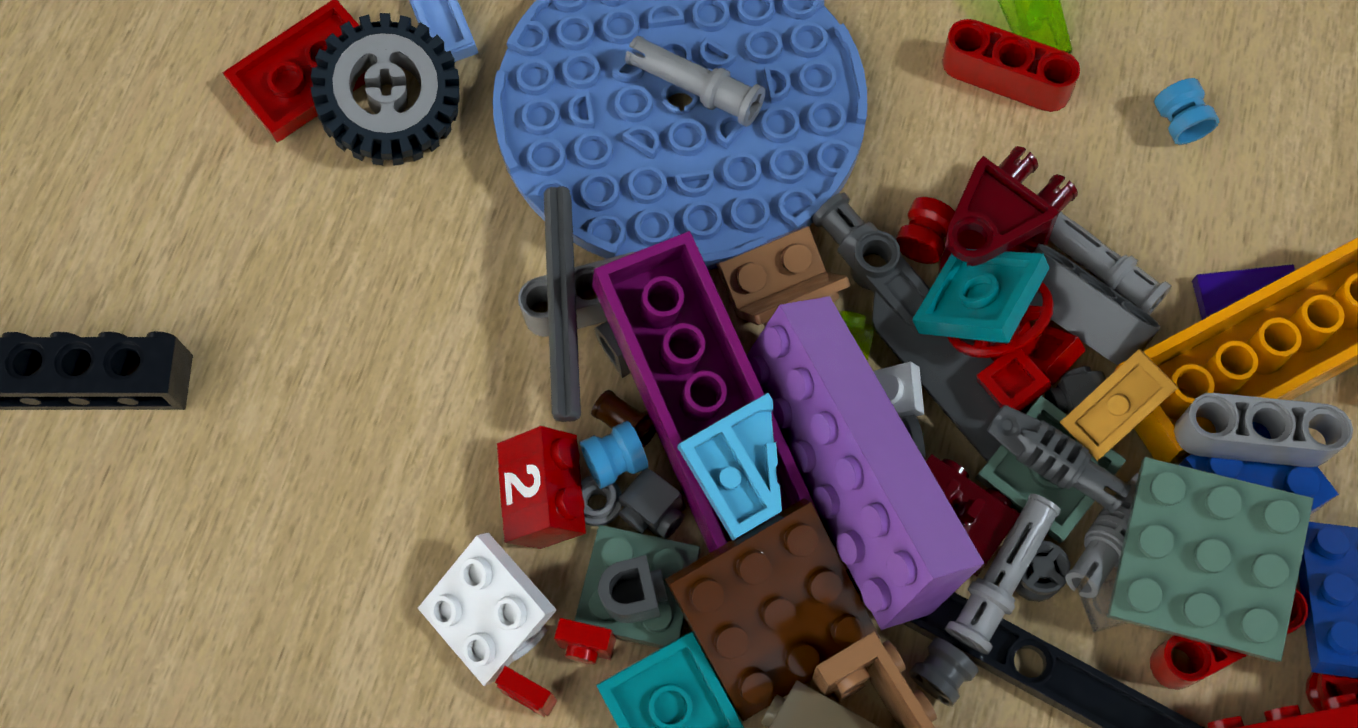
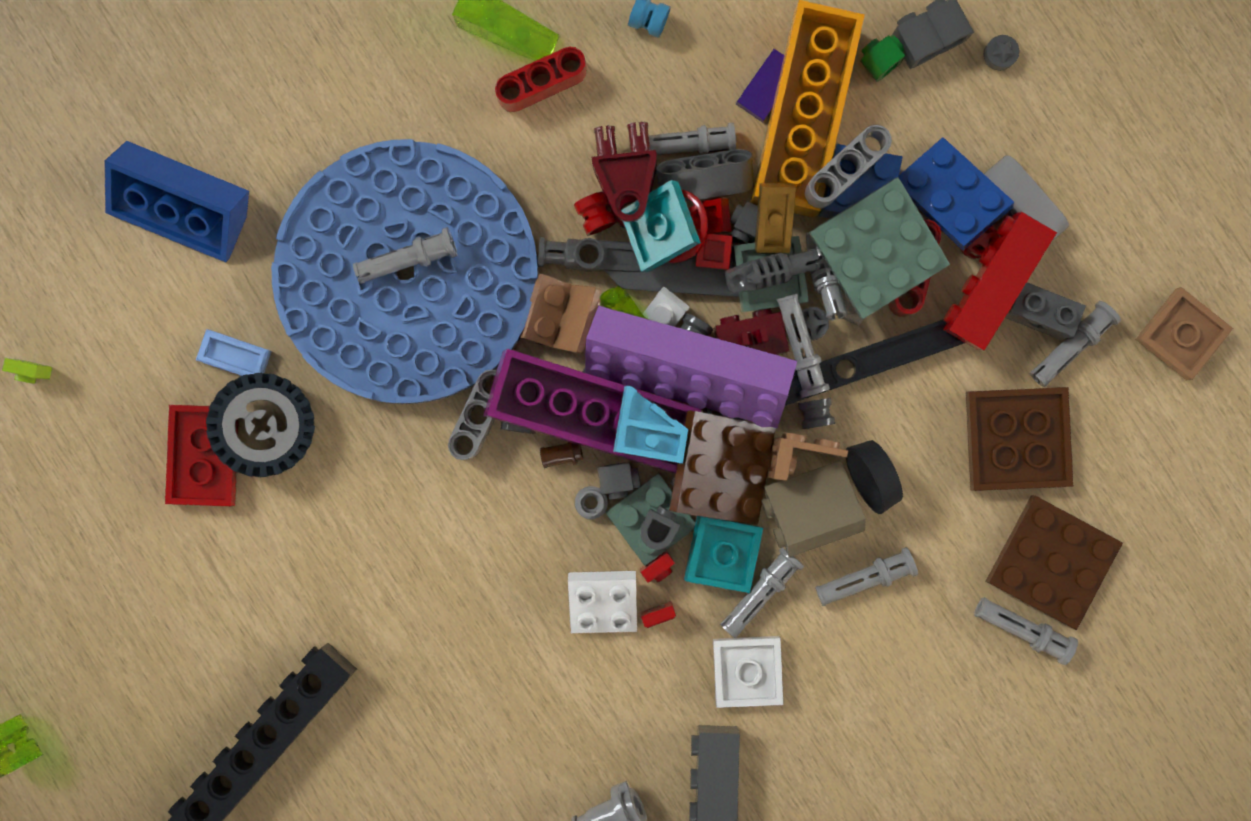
camera: 55 degrees left, 20 degrees up
(540, 488) = (565, 527): red brick -> none
(561, 305) = (477, 437): dark grey axle -> none
(614, 454) = (581, 479): dark azure wheel -> none

